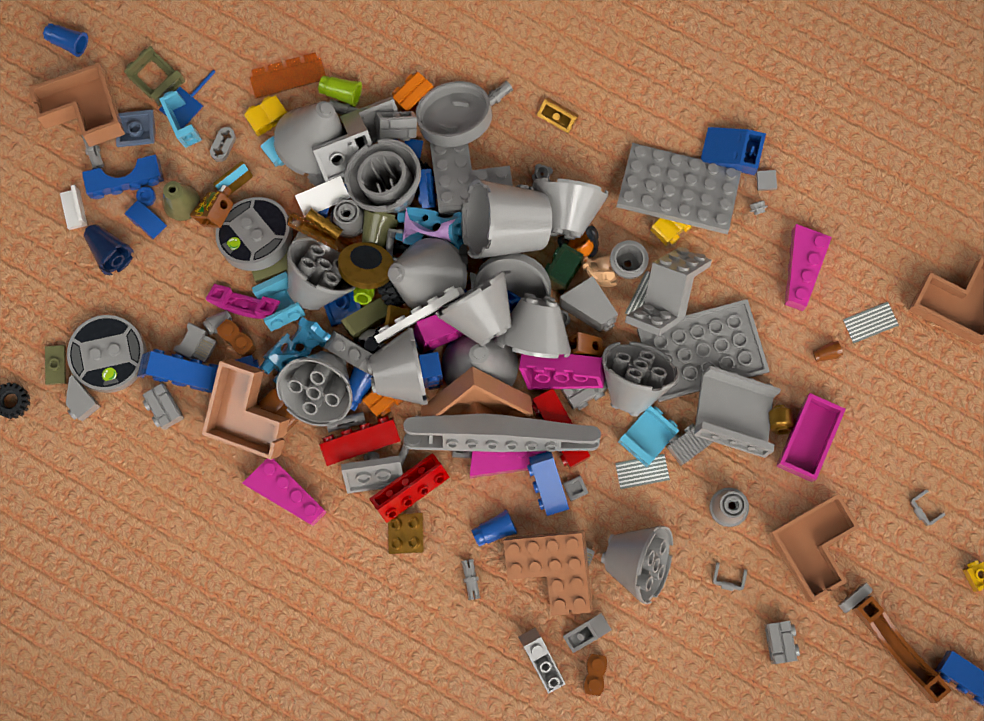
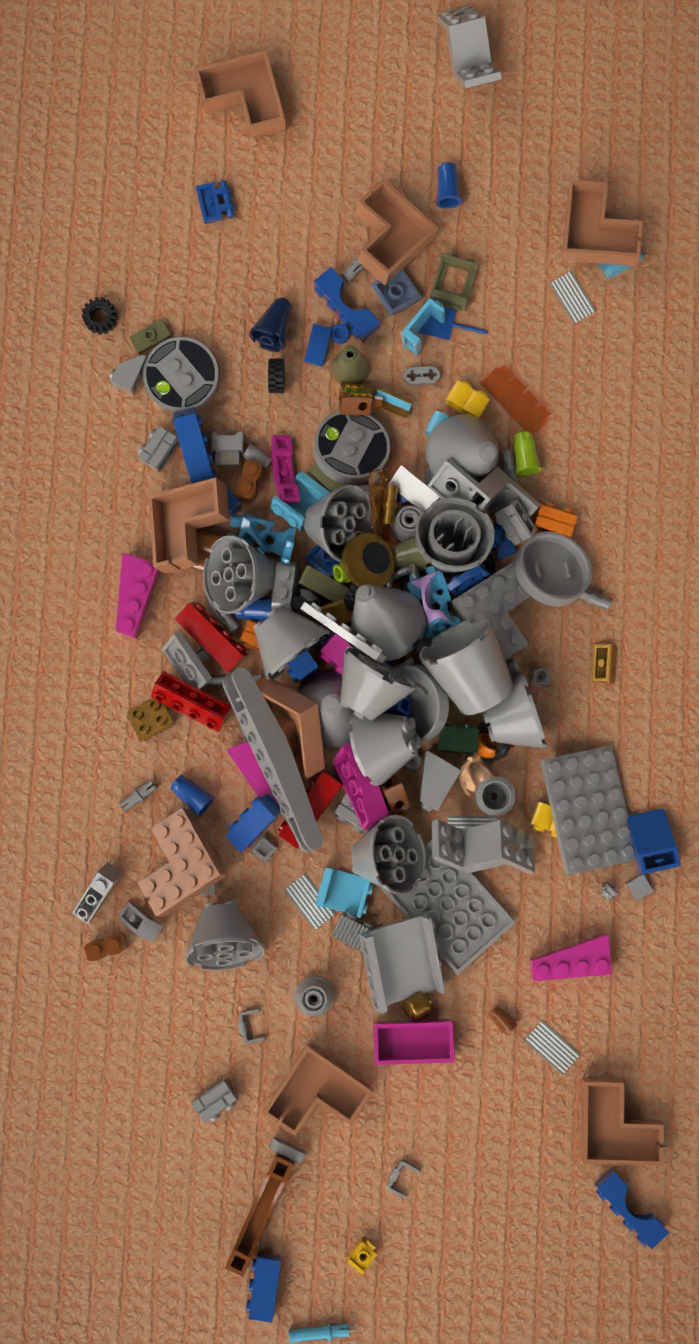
camera: 65 degrees right, 5 degrees up
(73, 208) = (296, 277): white panel -> none
(154, 268) = (276, 375): none -> black tyre

